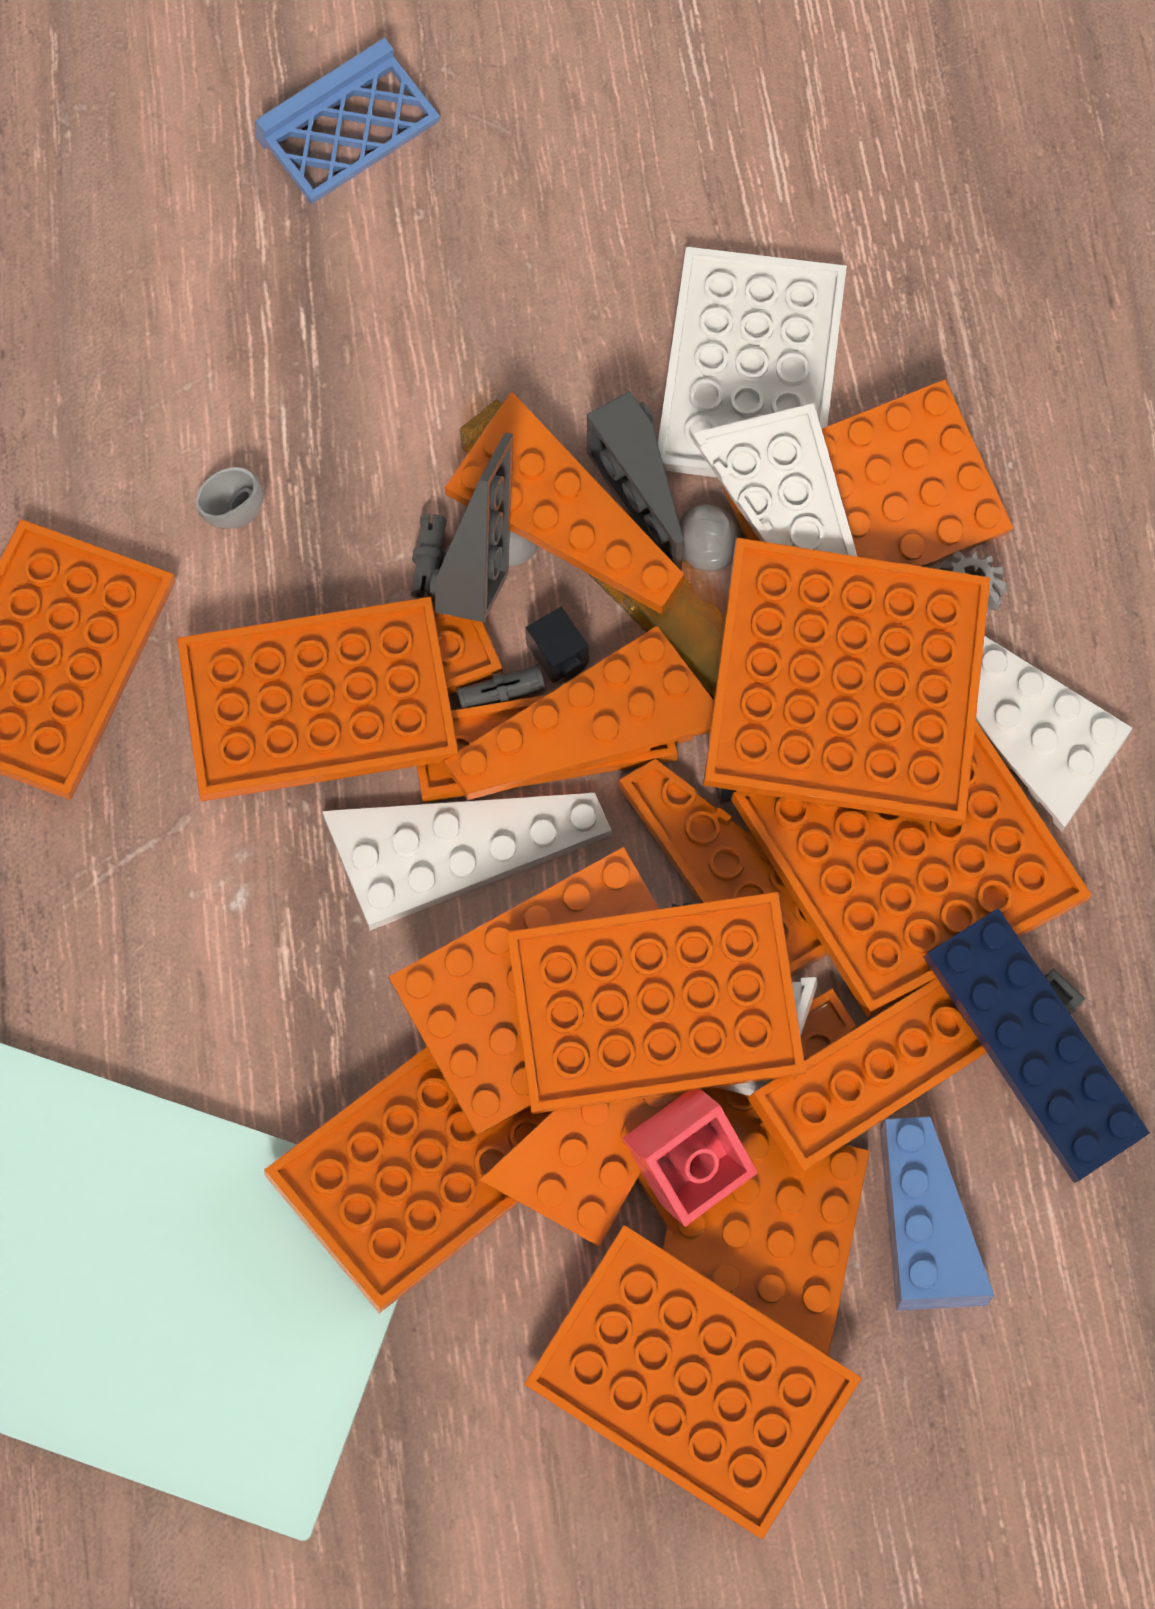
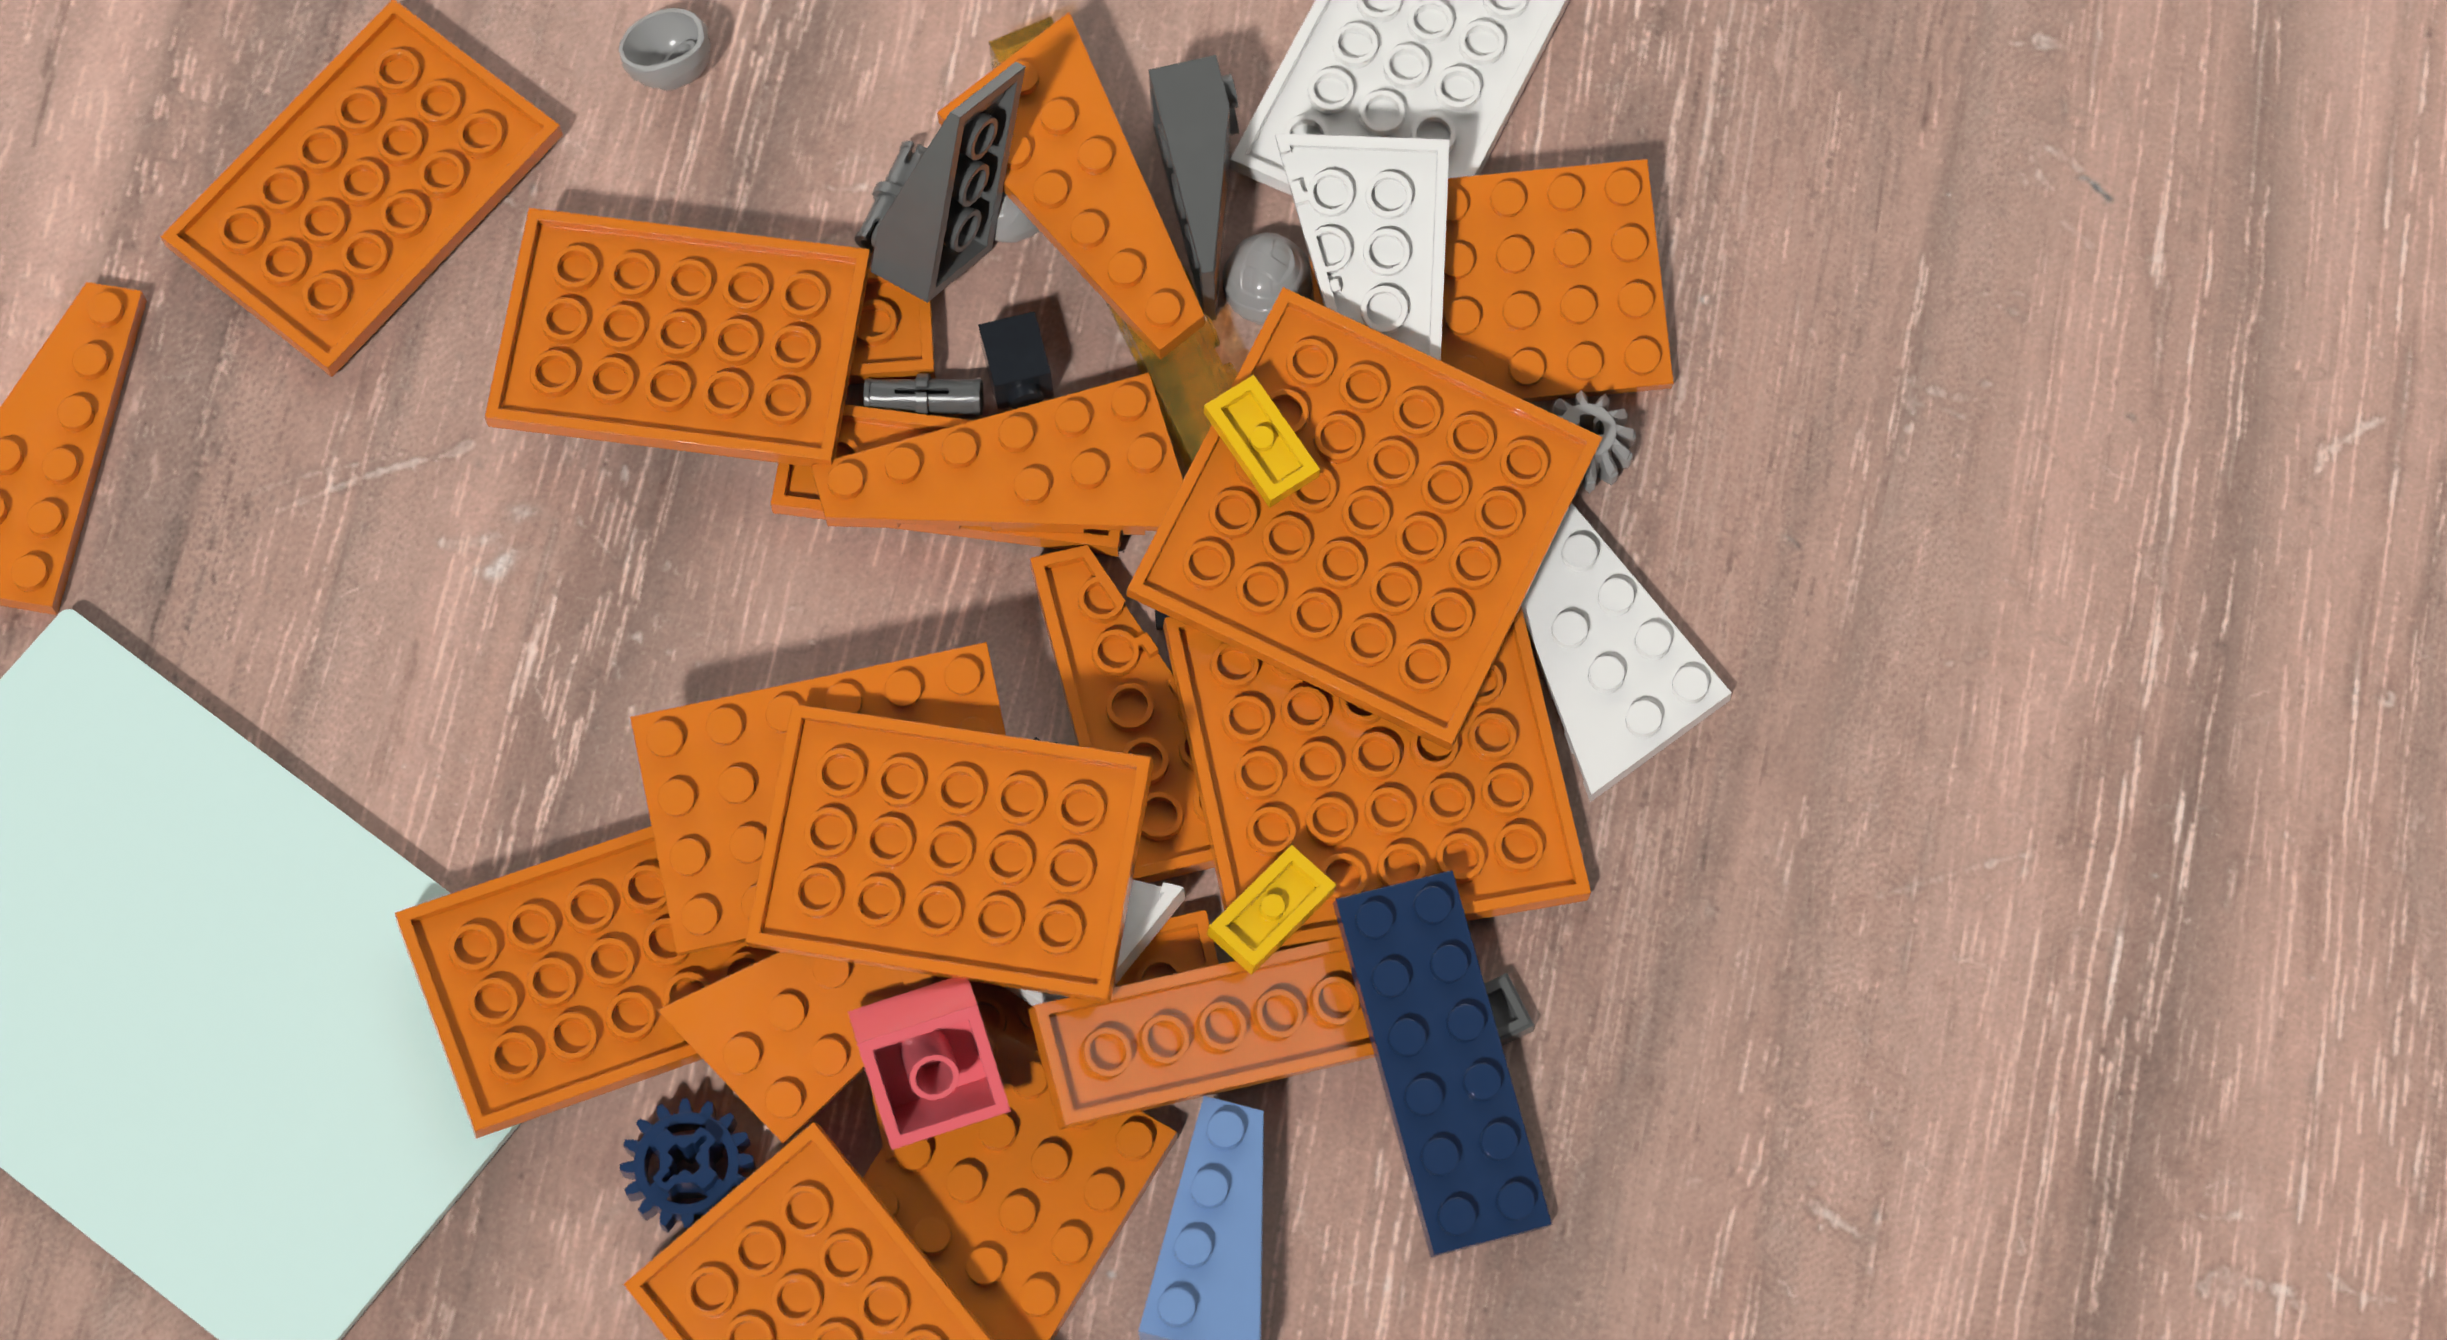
camera: 20 degrees right, 0 degrees up
(434, 852) = (762, 580): white wing -> none
(515, 1277) = (702, 1146): none -> dark blue gear
(764, 648) = (1261, 441): none -> yellow plate
(886, 974) = (1271, 909): none -> yellow plate

